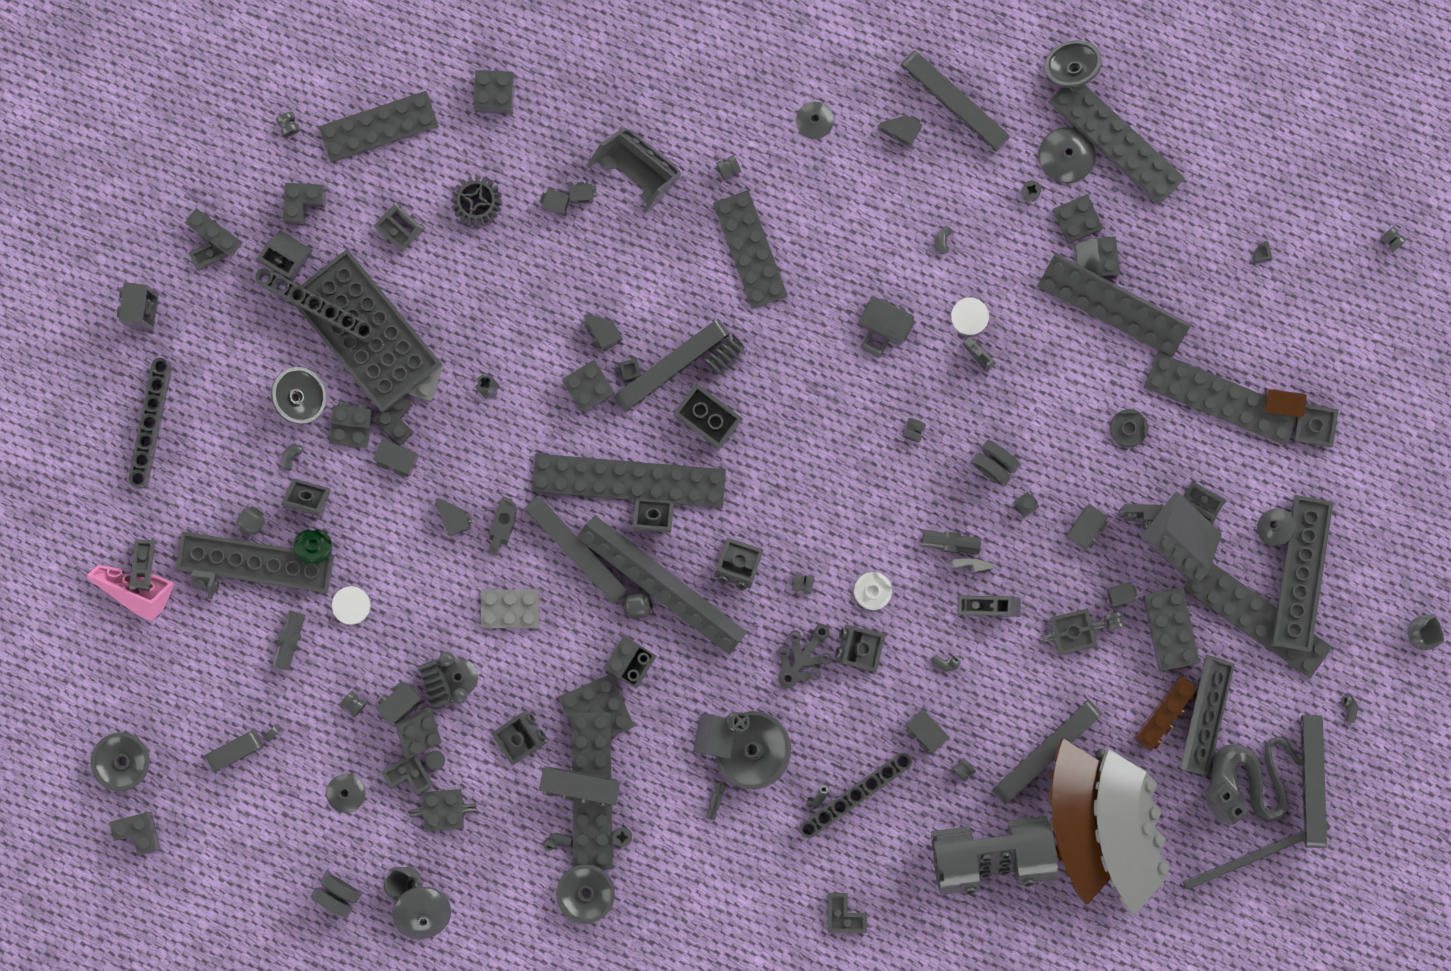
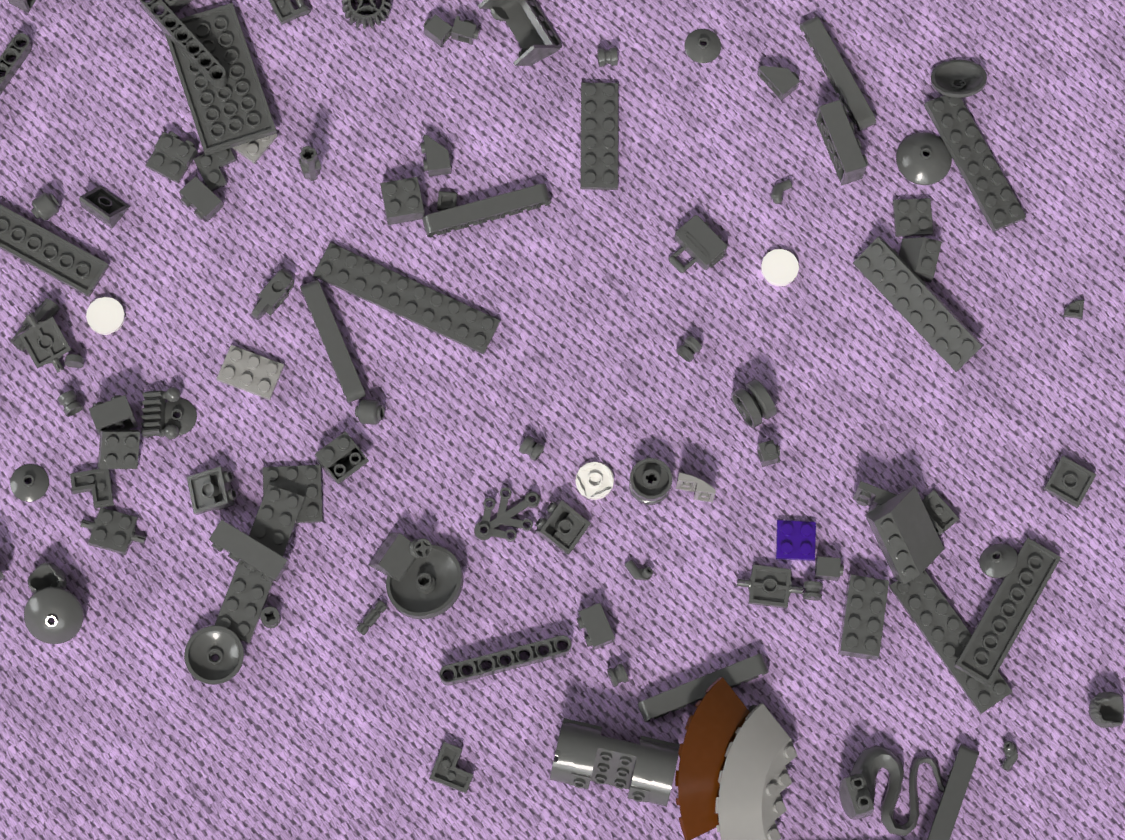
camera: 15 degrees right, 10 degrees down
(288, 454) = (104, 162): dark grey arm -> none
(305, 655) = (44, 342): none -> dark grey plate
(309, 393) = (144, 108): dark grey dish -> none
(312, 546) = (92, 249): dark green tile -> none
(340, 661) = (74, 361): none -> dark grey tile
(435, 760) = (124, 483): dark grey piece -> none
(453, 517) = (231, 271): dark grey slope -> none
(556, 839) = (207, 597): dark grey arm -> none
(653, 515) = (416, 336): dark grey slope -> none
(661, 584) = (399, 400): dark grey brick -> none
(708, 417) = (501, 266): dark grey brick -> none
(725, 355) = (539, 218): dark grey piece -> none
(738, 564) = (478, 408): dark grey plate -> none
(820, 797) = (471, 650): dark grey arm -> none
(937, 574) = (652, 470): none -> dark grey wheel
(951, 542) = (685, 461): dark grey piece -> none
(979, 354) = (775, 302): dark grey wing -> none
(984, 171) = (841, 142): none -> dark grey brick
(989, 605) = (700, 533): dark grey slope -> none
(1028, 194) = (875, 180): dark grey wheel -> none
(1081, 577) = (795, 540): none -> dark purple plate
(1087, 526) = (818, 495): dark grey brick -> none
(1129, 428) = (886, 423): dark grey tile -> none
(1164, 714) = (829, 693): reddish brown brick -> none
(1207, 715) = (869, 710): dark grey plate -> none
(1218, 398) = (989, 426): dark grey plate -> none
(1285, 402) = (1047, 449): reddish brown panel -> none

